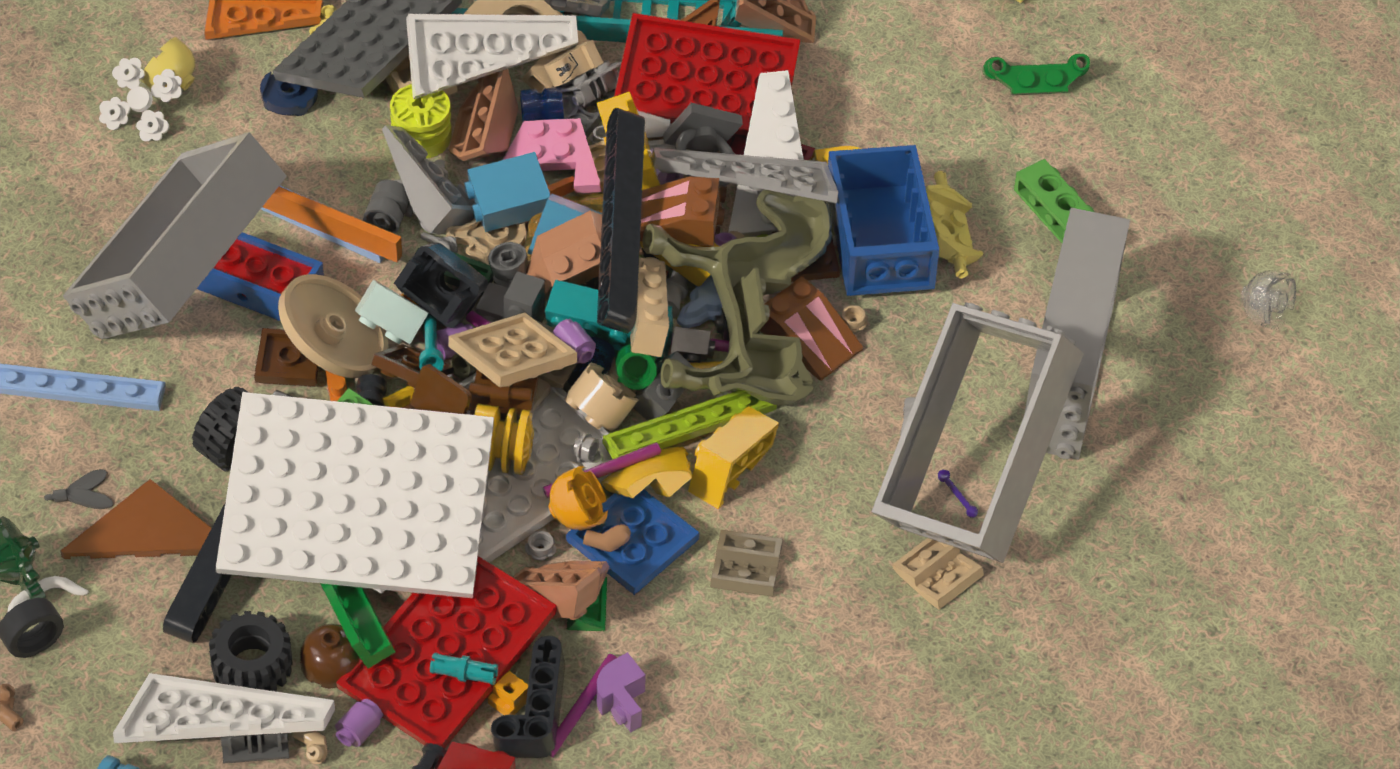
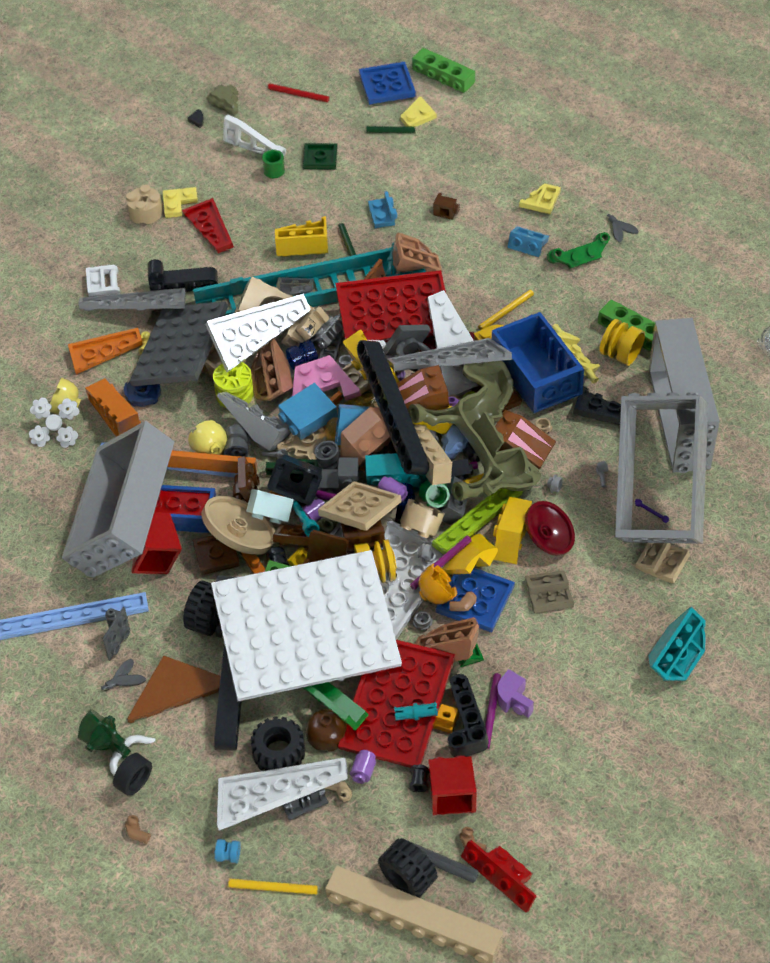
camera: 15 degrees left, 0 degrees up
(95, 424) = (117, 631): none -> dark grey hinge
(204, 321) = (160, 548): none -> red slope
(233, 99) = (112, 407): none -> orange wedge
(347, 187) = (208, 438): none -> light yellow cylinder
(374, 263) = (244, 480): none -> reddish brown plate
(796, 464) = (549, 528): none -> dark red dish
(830, 408) = (555, 483): none -> light grey plate
(883, 129) = (506, 309): none -> yellow bar
(896, 704) = (679, 647): none -> teal wedge
(933, 310) = (597, 408): none -> black wing
(964, 33) = (527, 241): none -> dark azure bracket
(1029, 228) = (622, 342): none -> yellow wheel
(1120, 51) = (618, 226): none -> dark grey piece

